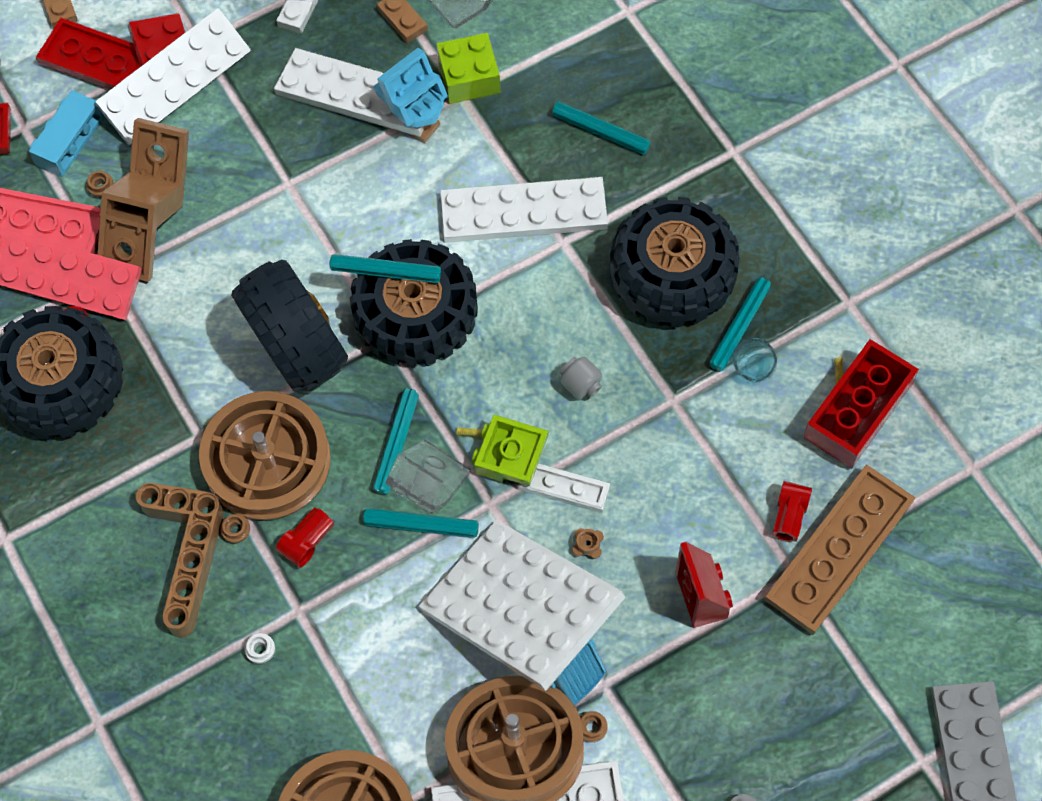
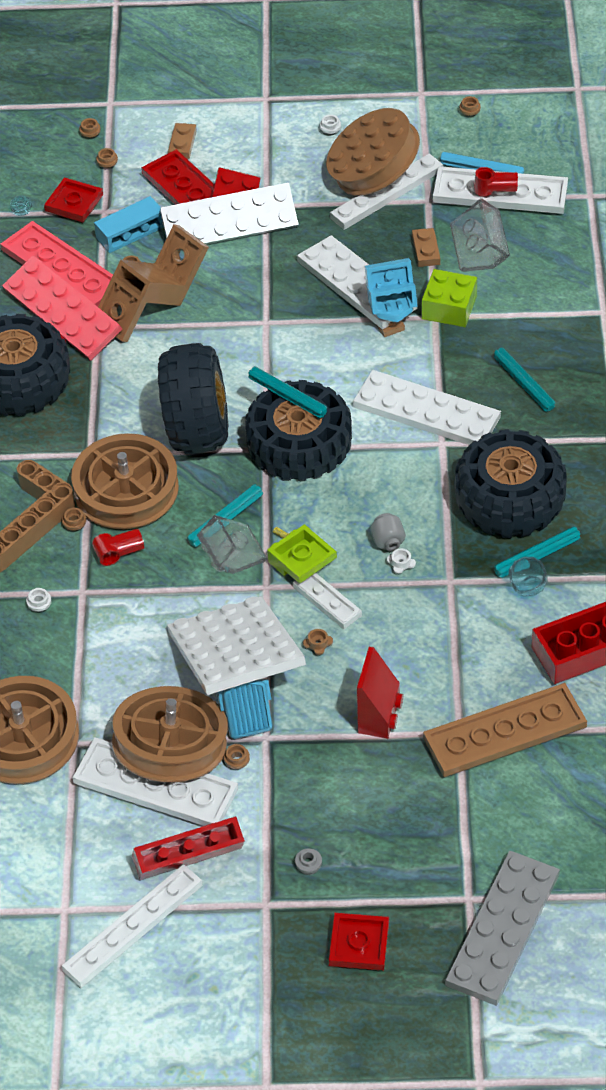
camera: 30 degrees right, 15 degrees down
(421, 522) = (206, 574): teal axle -> none
(612, 395) = (401, 555): none -> white plate
(792, 506) = (489, 683): red piece -> none

